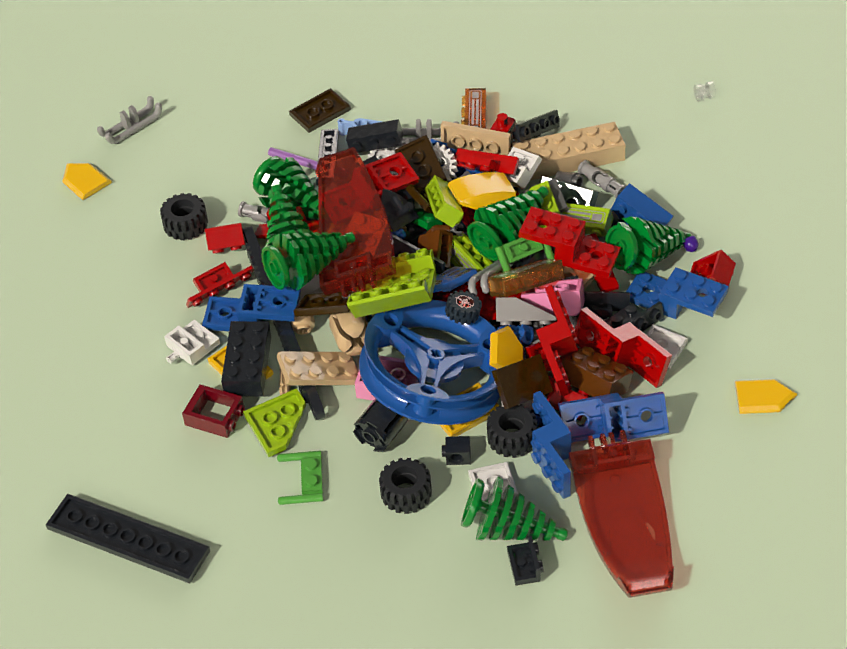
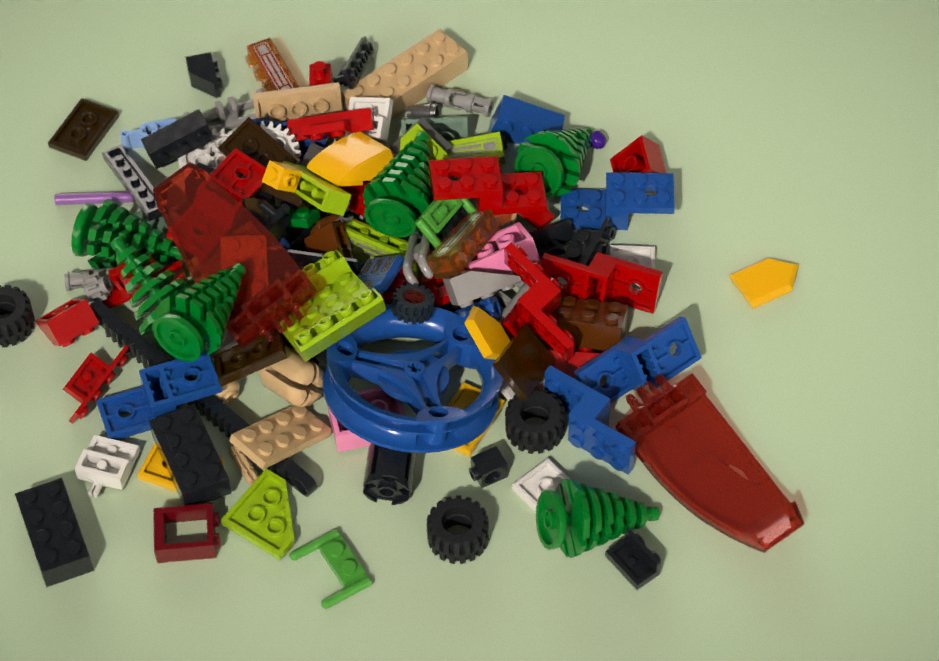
camera: 30 degrees left, 5 degrees up
(126, 375) = (54, 532): none -> black brick
(257, 219) = (98, 287): none -> light grey gear
(422, 183) = (282, 176): none -> yellow brick
(425, 98) = (203, 72): none -> black slope

